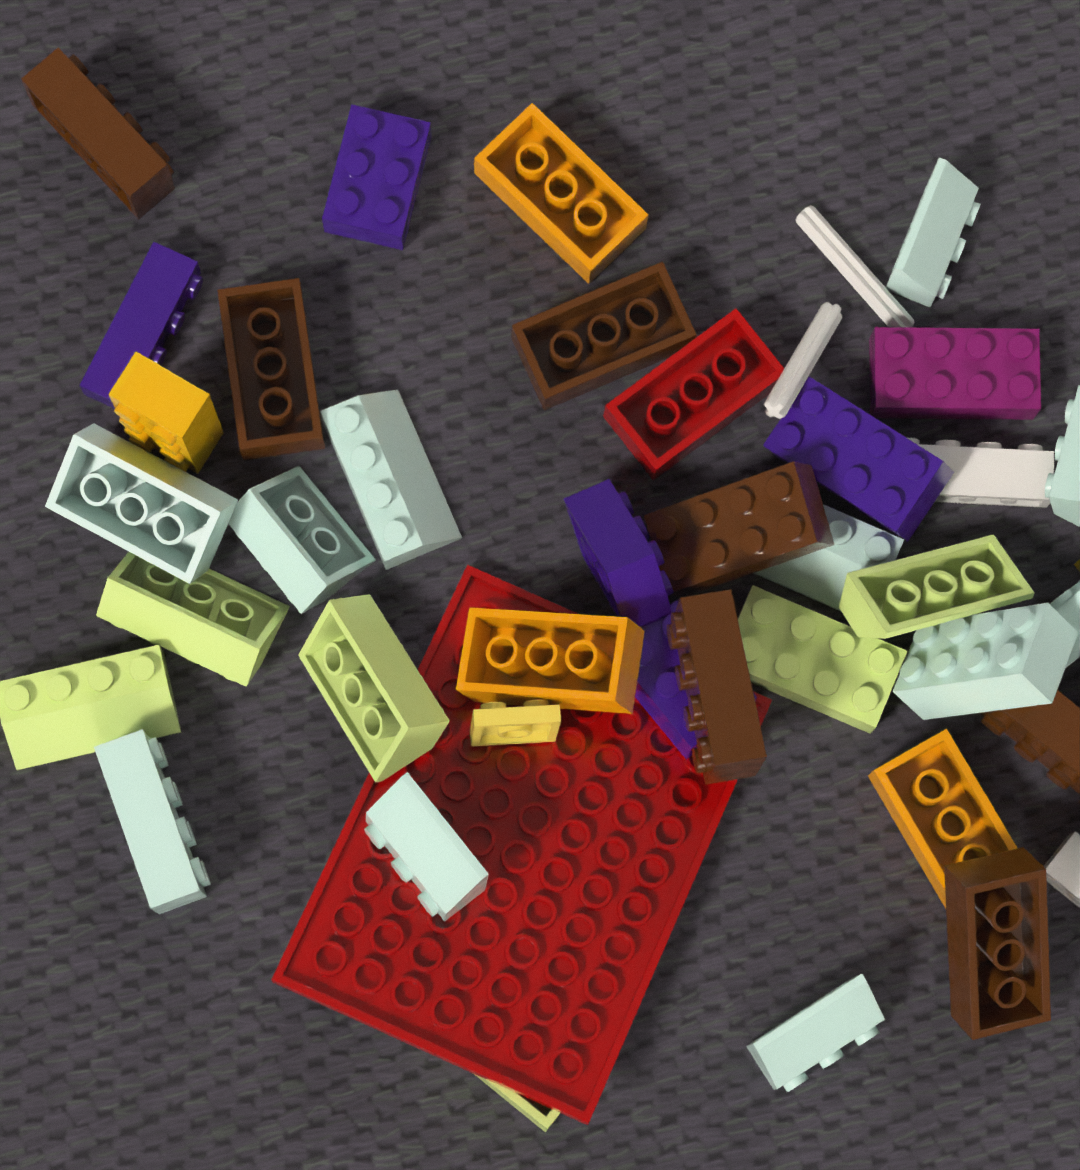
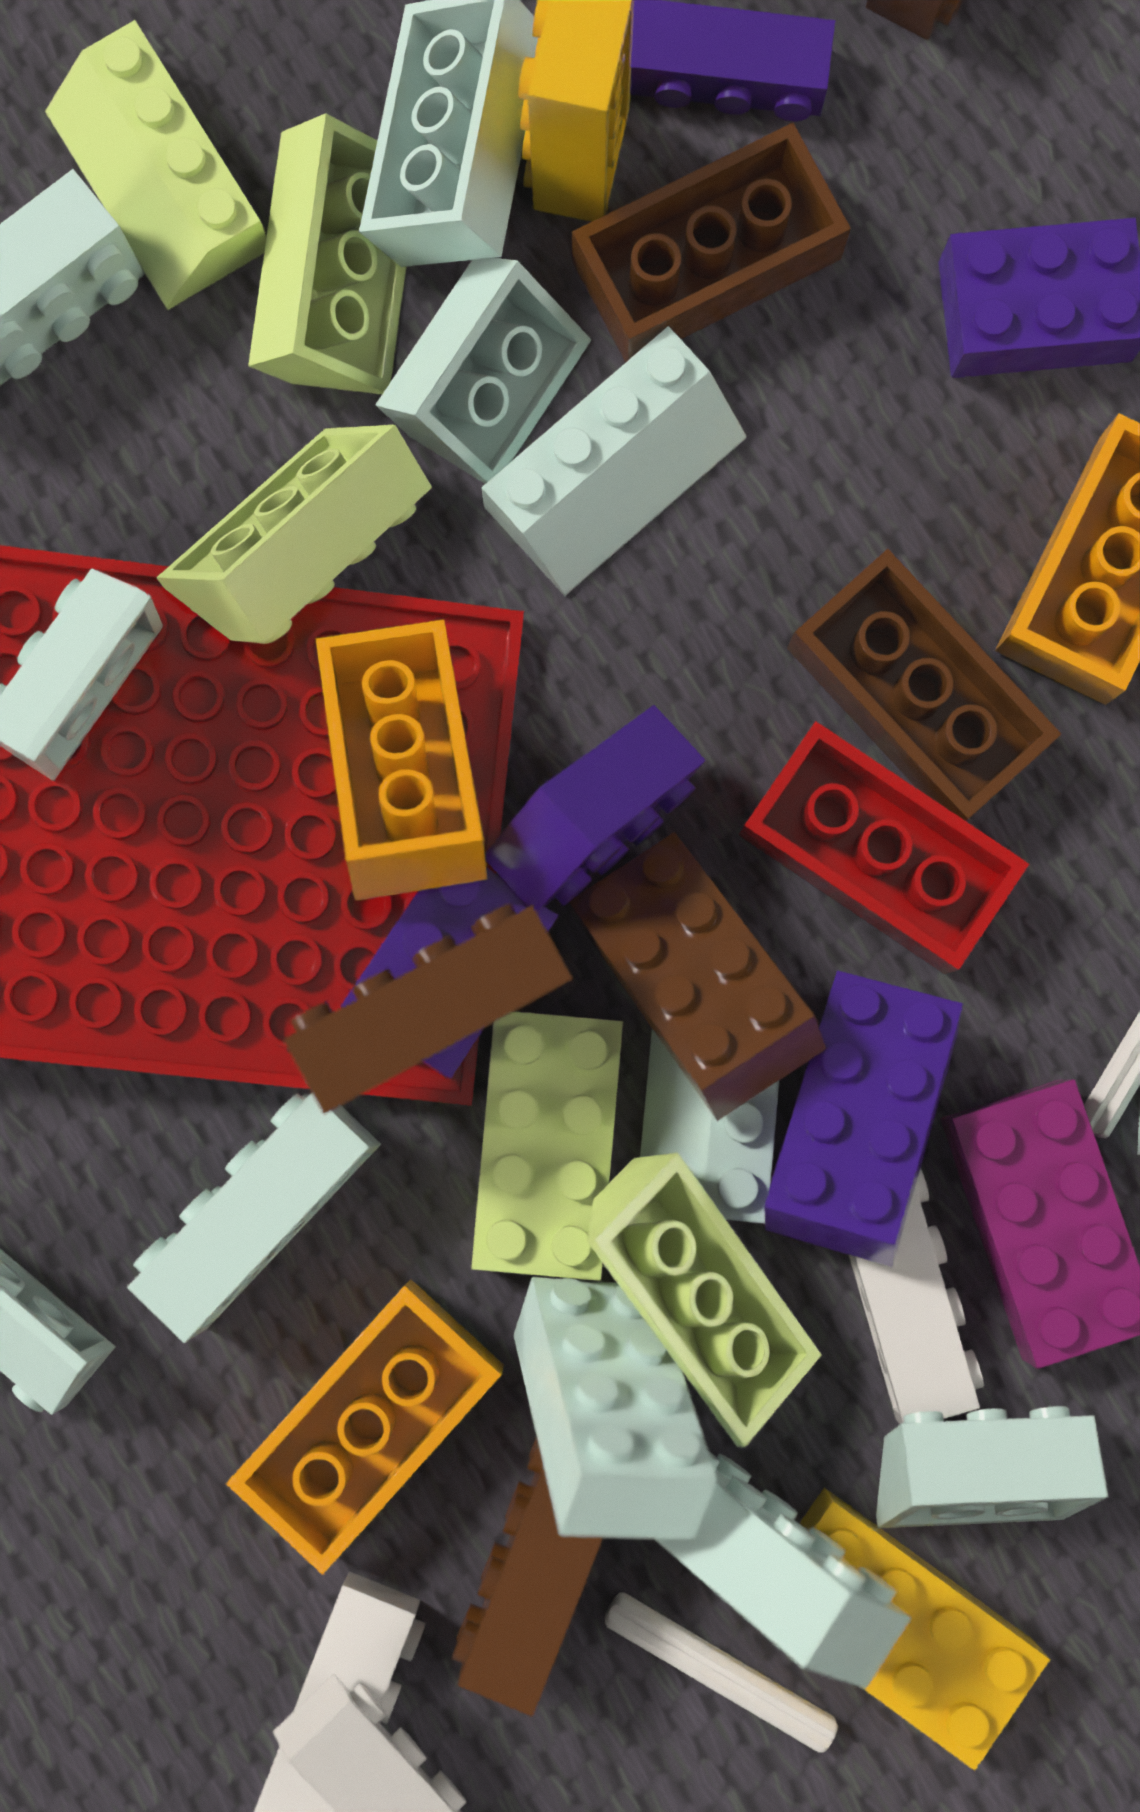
camera: 80 degrees right, 5 degrees up
(515, 725) = (288, 716): light yellow plate -> none
(798, 849) = (252, 1217): none -> light aqua brick
(803, 360) = (984, 988): white axle -> none
(998, 942) = (202, 1552): reddish brown brick -> none

